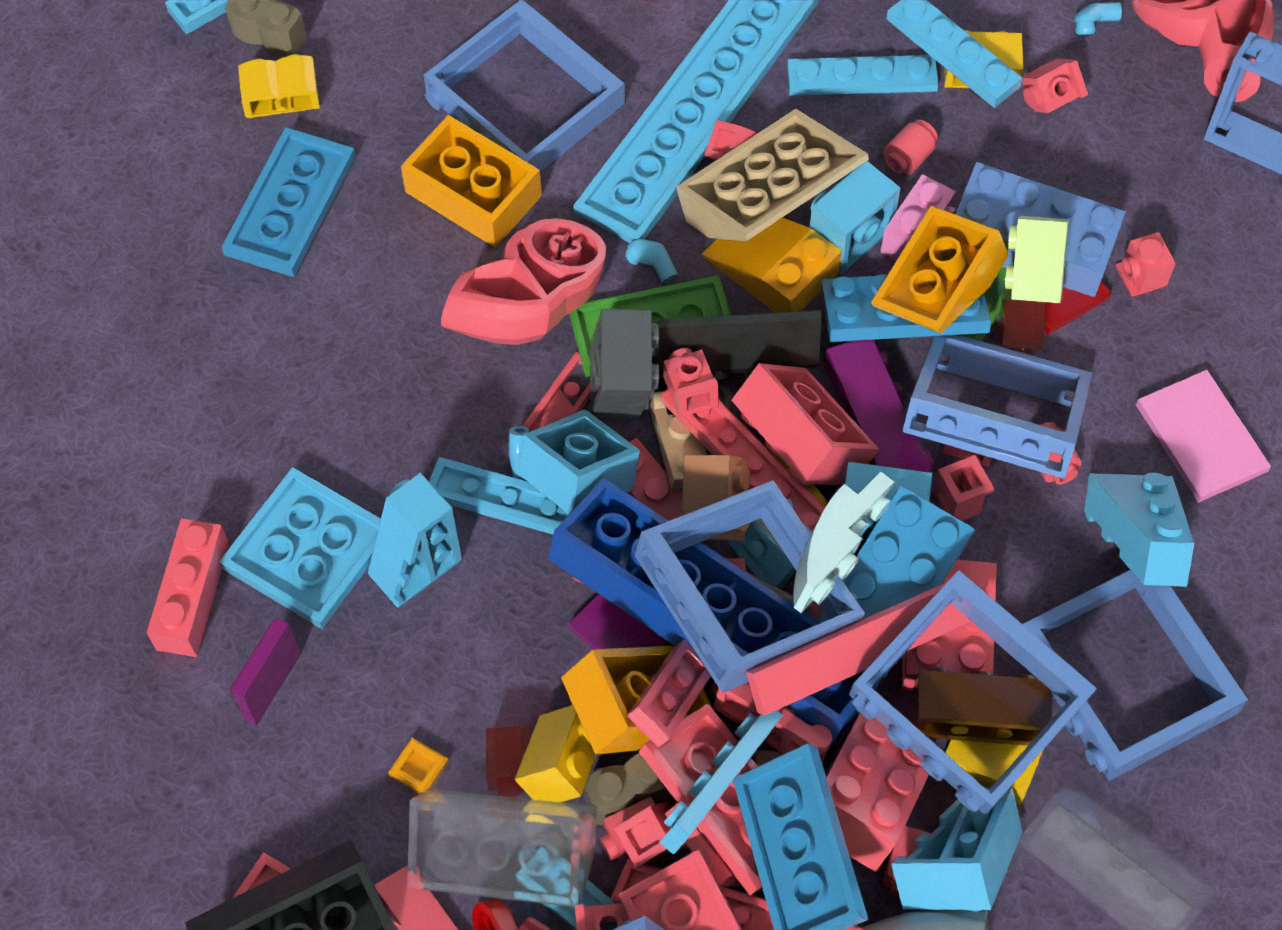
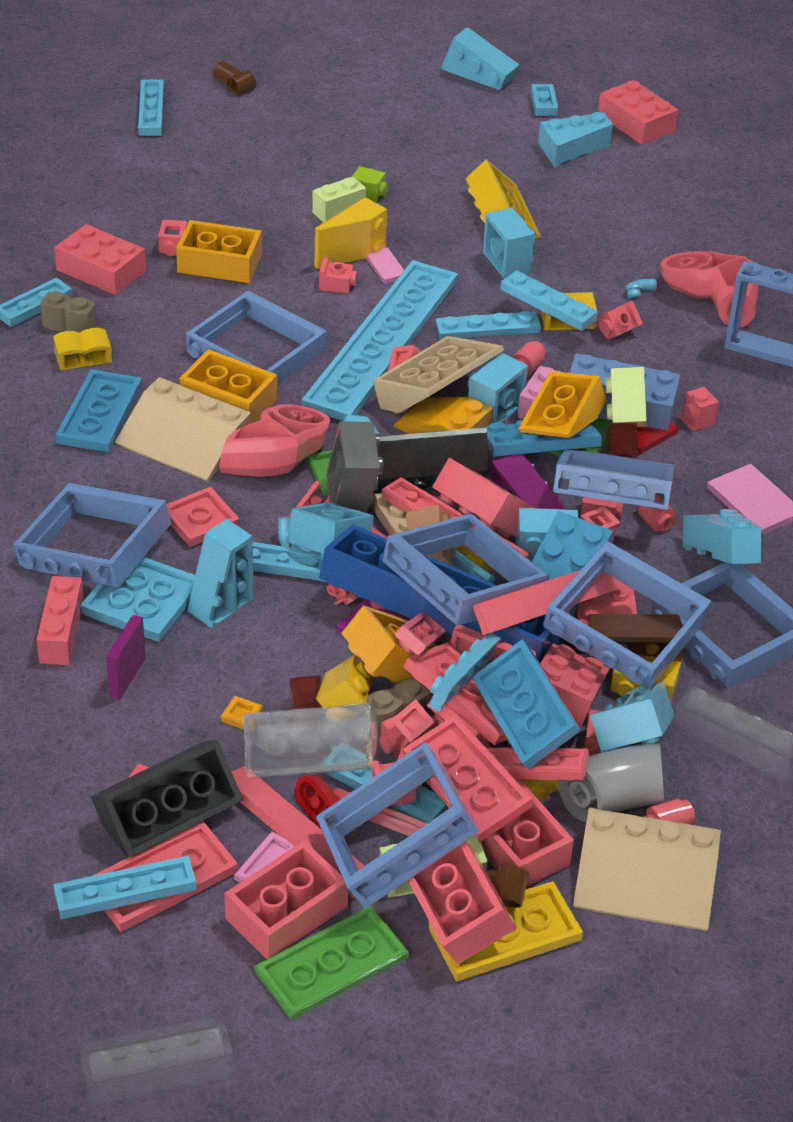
camera: 10 degrees left, 20 degrees down
(201, 401) = (147, 512): none -> medium blue window
(399, 247) = (181, 428): none -> tan slope
(405, 409) = (199, 513): none -> coral plate
(690, 382) = (401, 469): coral brick -> none
(836, 539) = (521, 533): light aqua slope -> none

